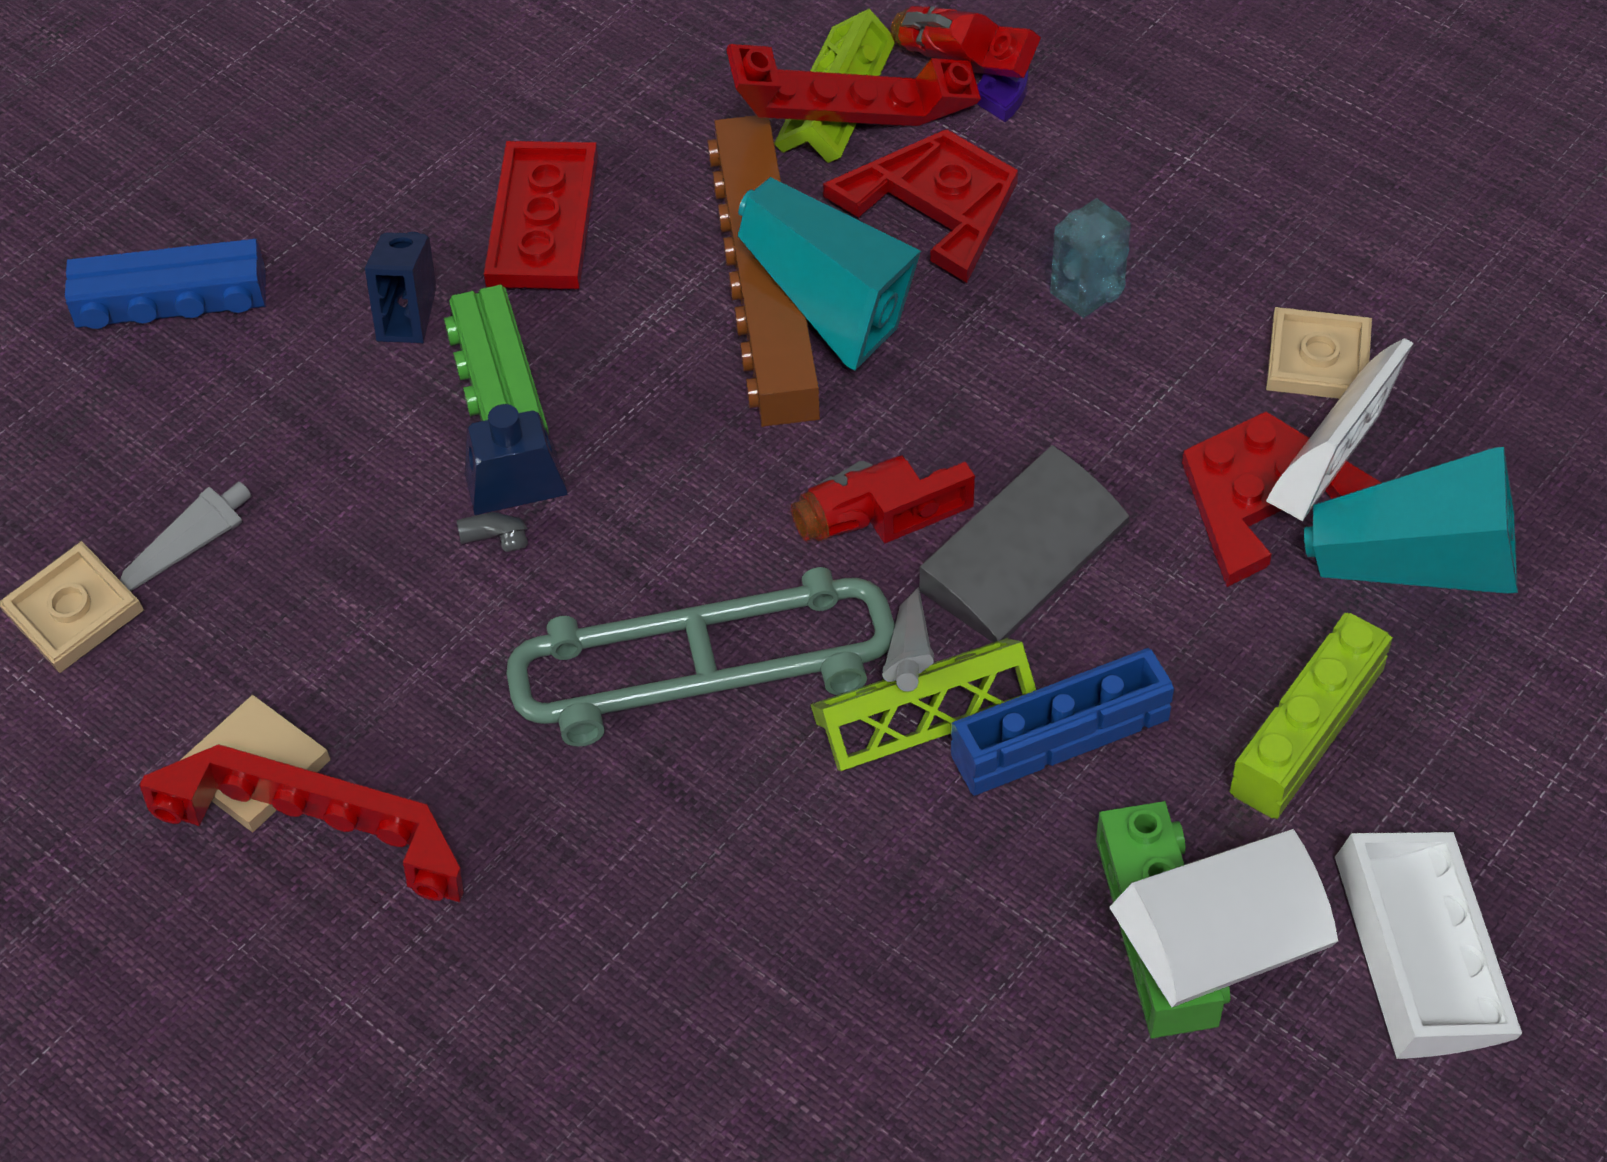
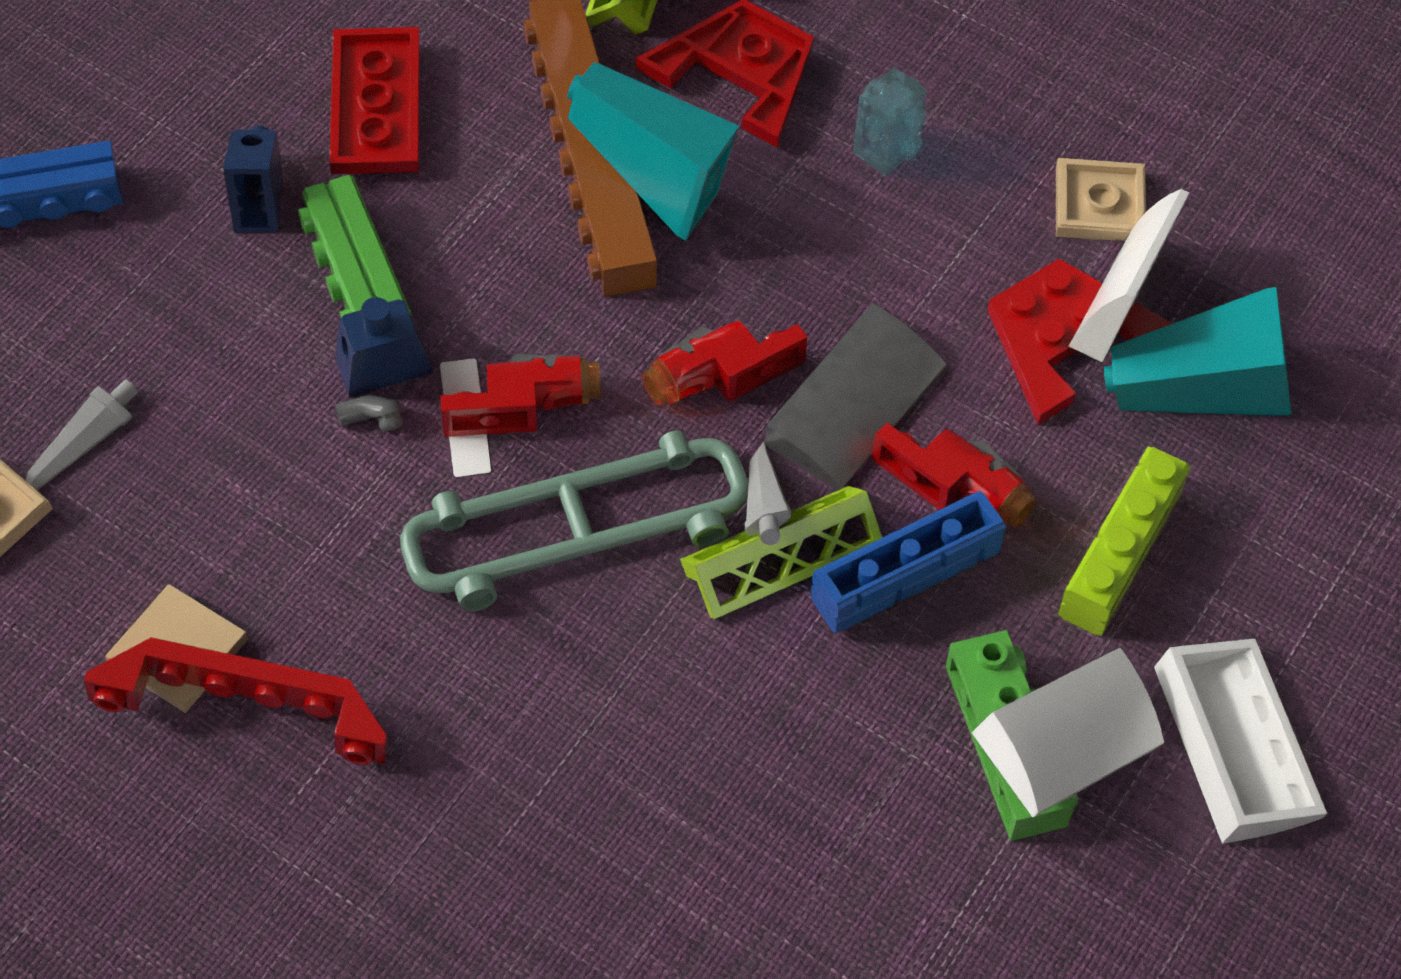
camera: 10 degrees left, 5 degrees up
(596, 543) = (468, 452): none -> white sticker
(652, 518) = (517, 391): none -> red plate
(1123, 624) = (952, 470): none -> red plate

